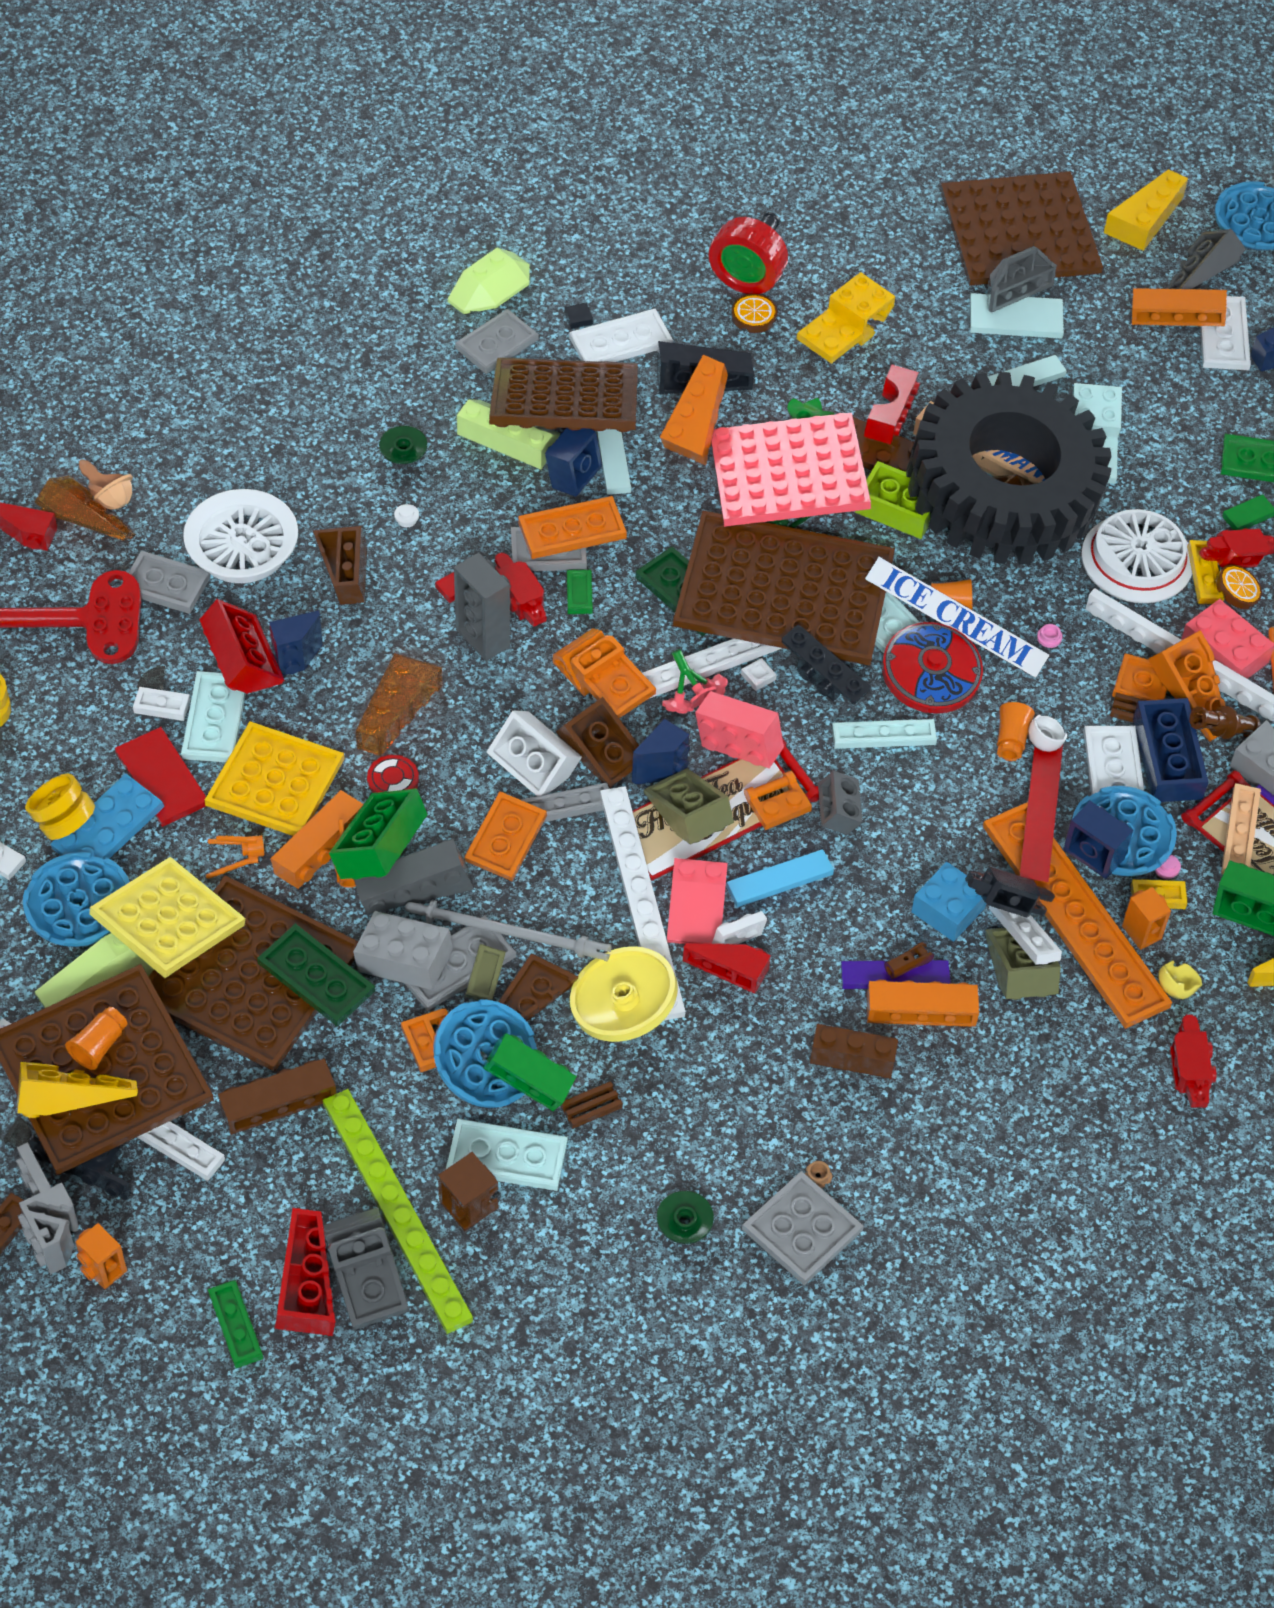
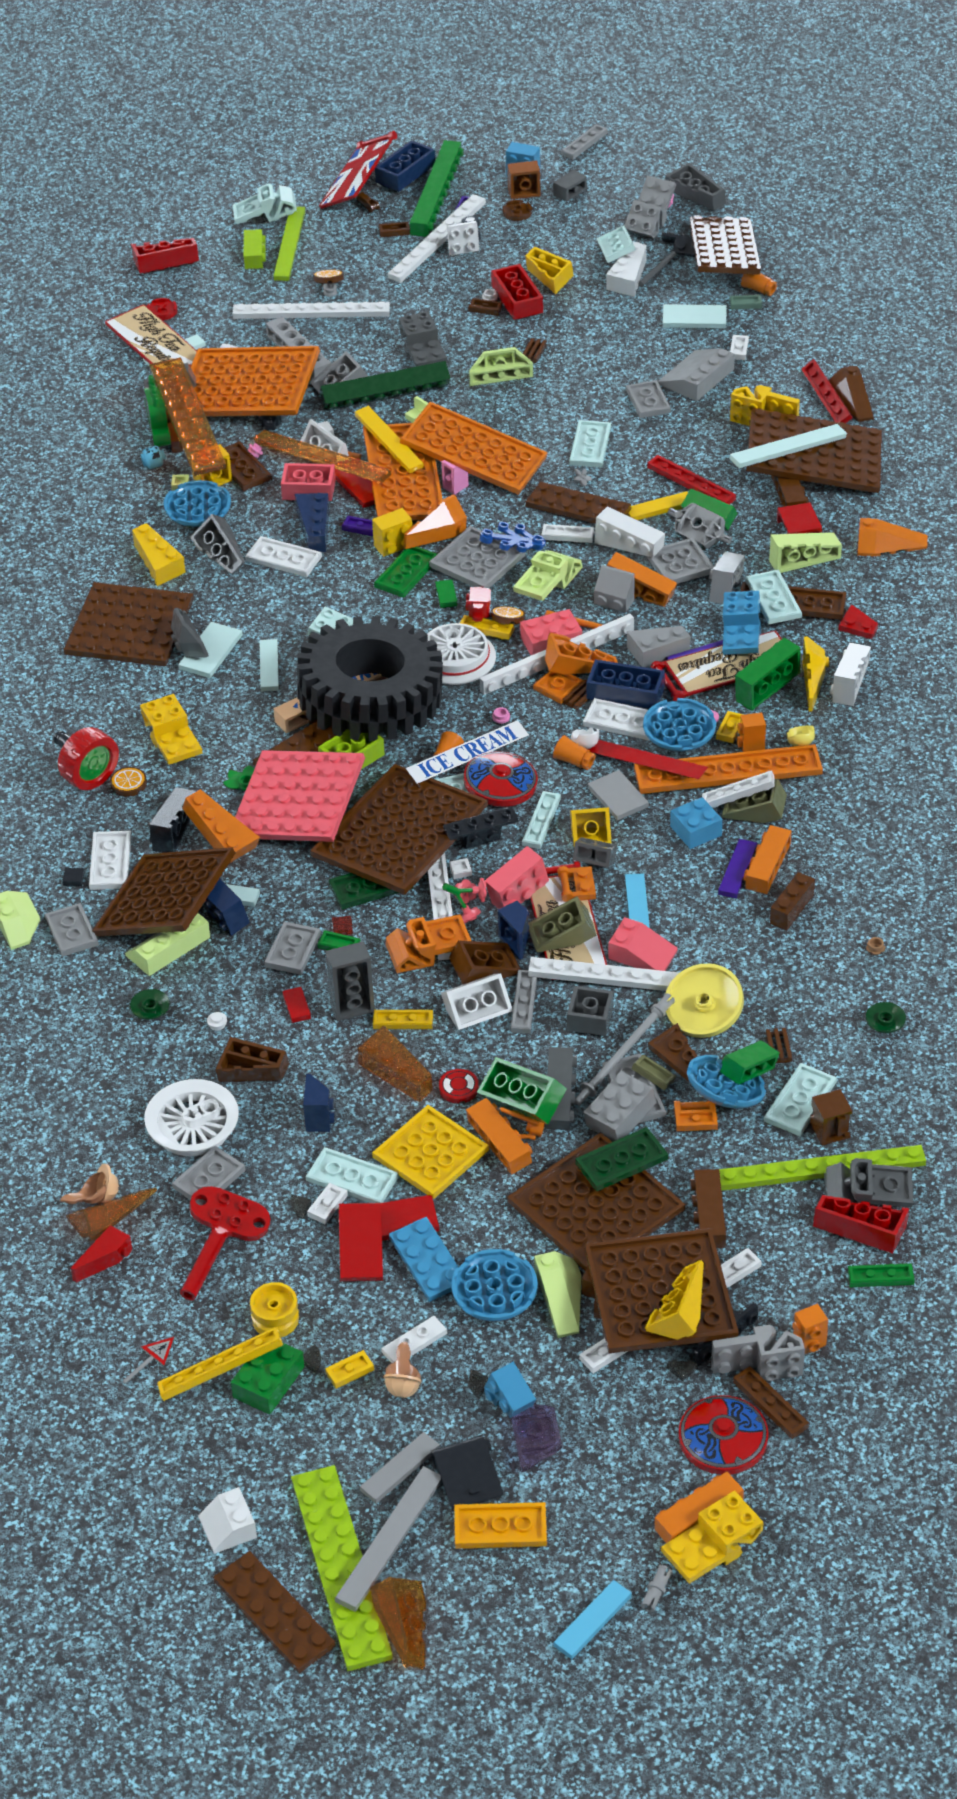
camera: 65 degrees left, 10 degrees down
(60, 806) = (408, 1274): yellow wheel -> none
(96, 1038) = (645, 1276): orange plant -> none
(111, 750) = (360, 1242): none -> red tile
(167, 917) = (541, 1227): light yellow plate -> none
(240, 648) = (302, 1141): red slope -> none
(250, 846) = (486, 1179): orange plant -> none
(481, 691) = (403, 1019): none -> yellow tile
(505, 836) = (542, 1029): orange plate -> none
(525, 590) = (312, 973): red hinge -> none
(557, 874) = (590, 1010): none -> dark grey brick
(572, 527) = (288, 924): orange plate -> none
(608, 585) = (342, 925): none -> clear red tile
(731, 962) = (700, 941): red slope -> none
(741, 930) = (676, 932): white plate -> none
(802, 1228) = (912, 963): light grey plate -> none
(886, 419) = (249, 722): arch -> none
(890, 786) = (591, 824): none -> yellow slope
(906, 961) = (735, 855): reddish brown bar -> none
(968, 803) = (618, 794): none -> light grey tile
(1009, 892) = (712, 784): black hinge -> none
(1098, 839) = (693, 728): dark blue brick -> none
(1179, 307) = (255, 566): orange brick -> none
(1192, 1062) = (860, 749): red hinge -> none
(1223, 722) = (619, 650): reddish brown piece -> none
(1241, 825) = (702, 672): light nougat plate -> none

